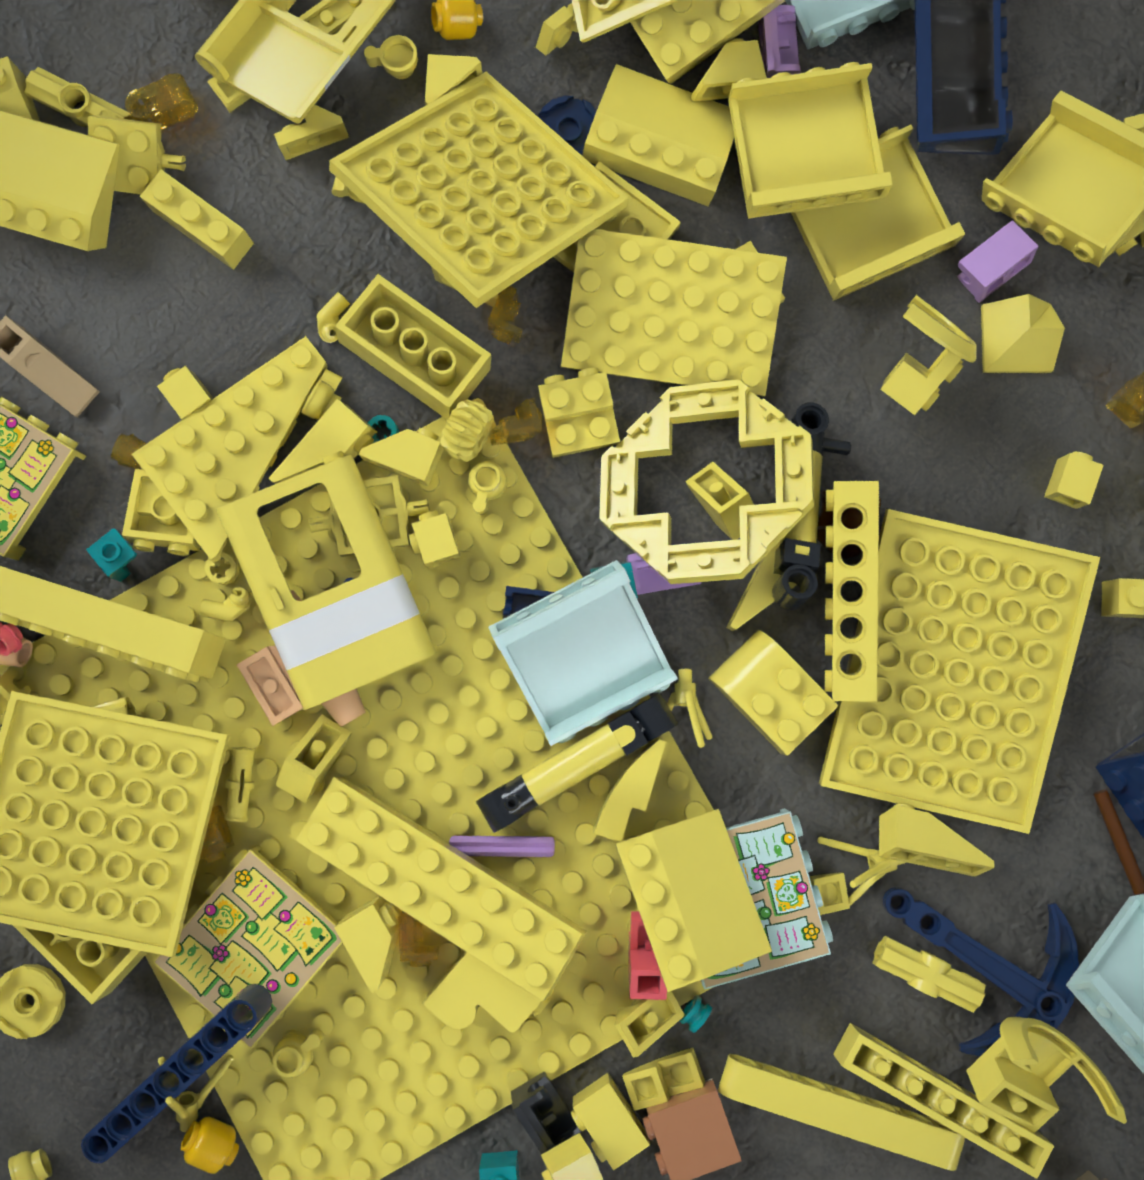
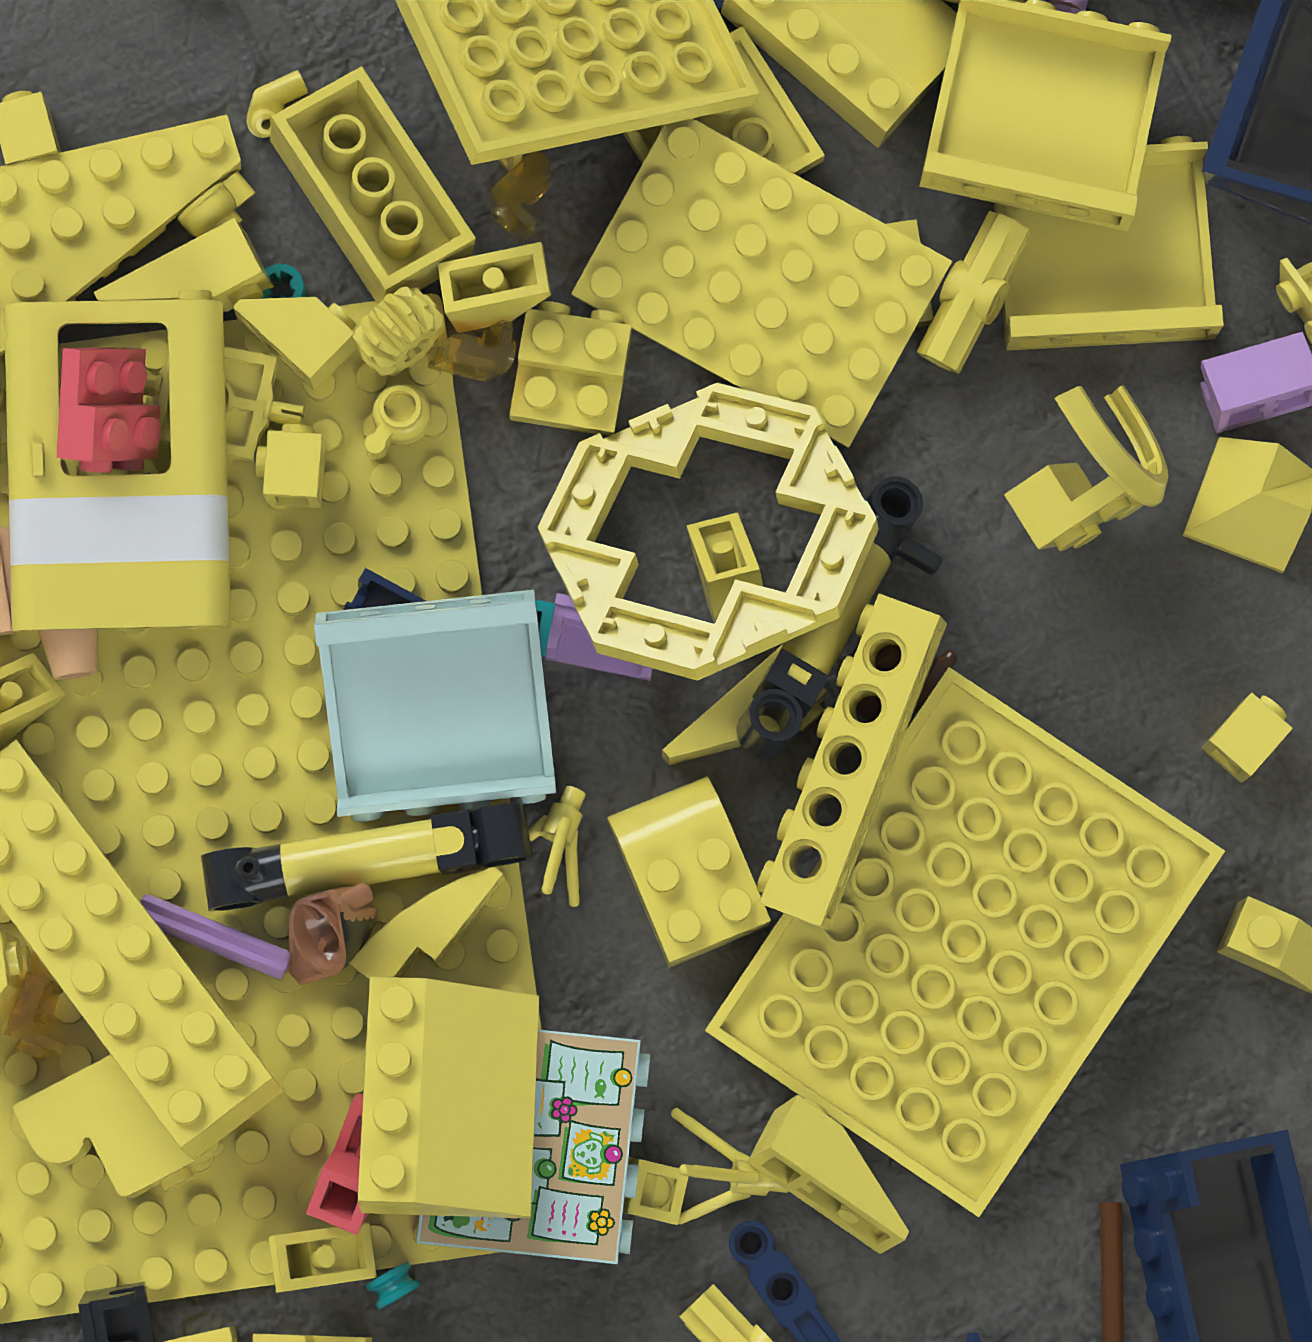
camera: 20 degrees right, 5 degrees down
(305, 551) = (104, 410): none -> coral plate
(514, 379) = (493, 286): none -> light yellow slope
(573, 818) = (329, 931): none -> nougat hat
(805, 271) = (974, 292): none -> light yellow piece

